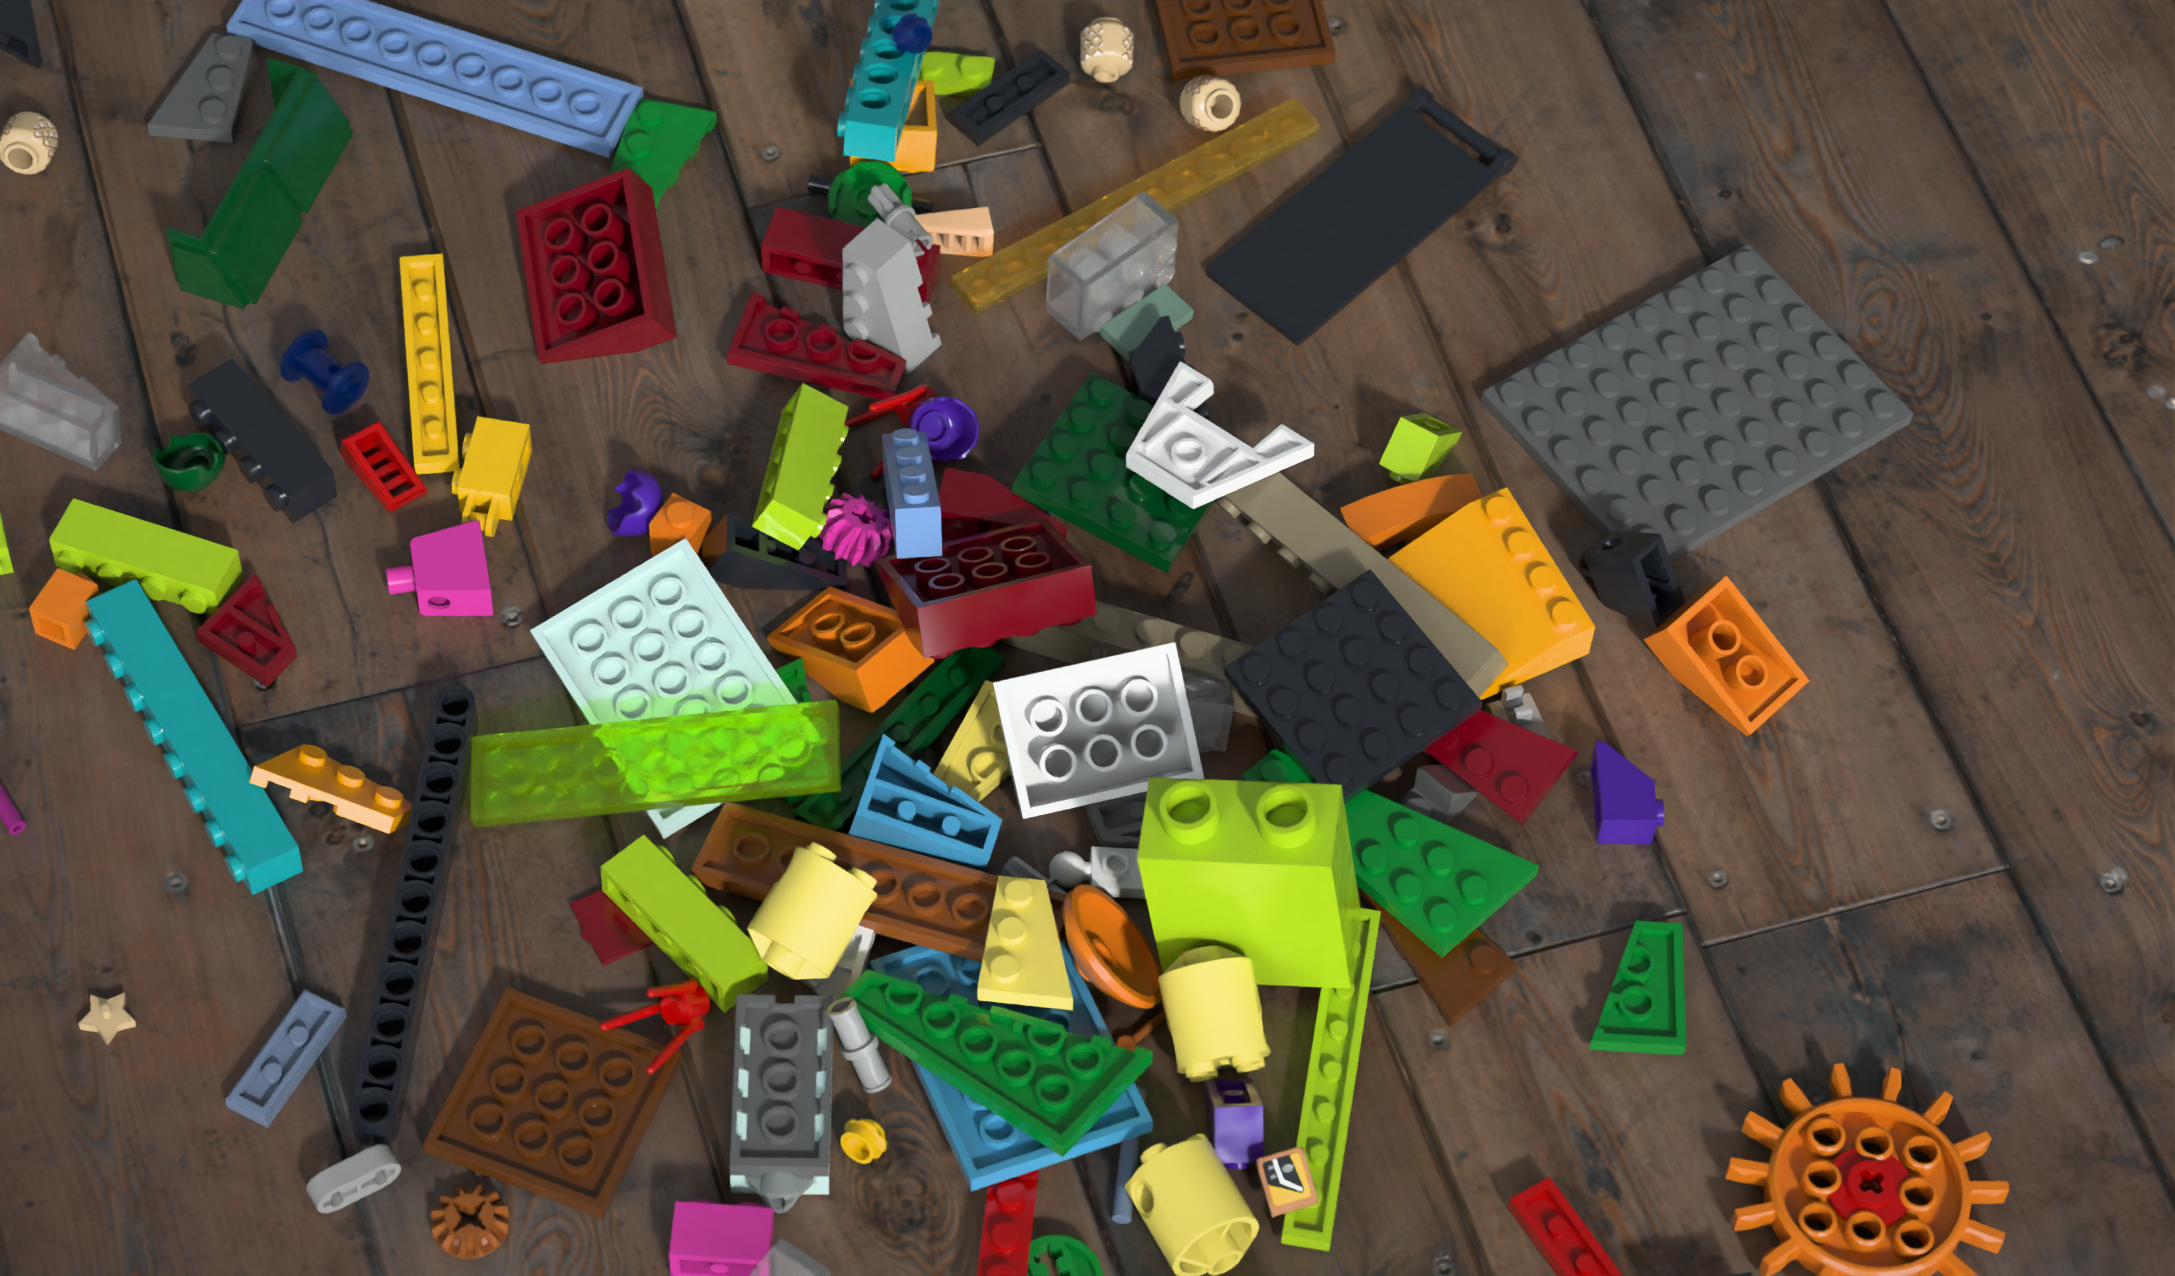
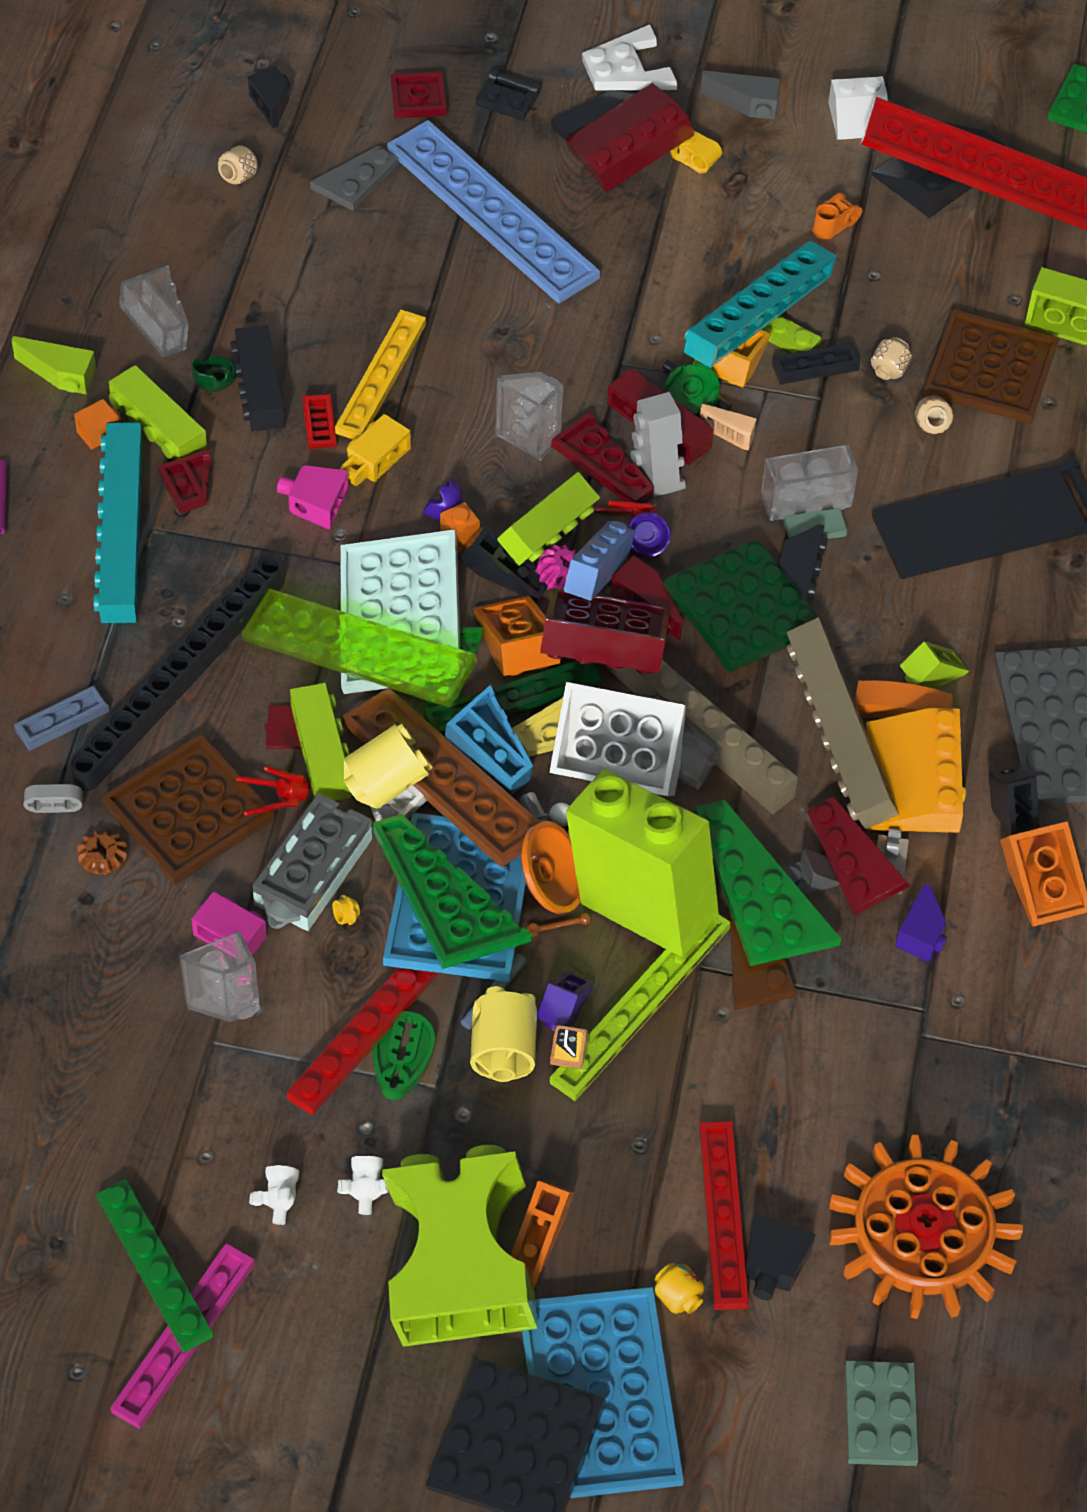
camera: 30 degrees right, 0 degrees up
(267, 195) = (349, 243): dark green piece -> none
(310, 360) = (314, 345): clear blue hose -> none
(321, 778) = (173, 573): light orange wing -> none
(596, 270) = (503, 345): dark red slope -> none
(660, 142) = (578, 315): green wing -> none
(684, 327) = (529, 411): none -> clear slope
(859, 1045) = (372, 854): light grey pin -> none
(899, 216) = (696, 403): light grey axle -> none
(919, 38) = (763, 304): clear blue plate -> none
(1023, 949) = (495, 842): light yellow wing -> none
(1169, 185) = (866, 453): clear yellow plate -> none
(1196, 457) = (783, 612): white wing -> none
(1213, 1013) = (585, 932): light yellow cylinder -> none
(1353, 687) = (789, 784): black plate -> none
(1647, 994) = (864, 1047): green wing -> none

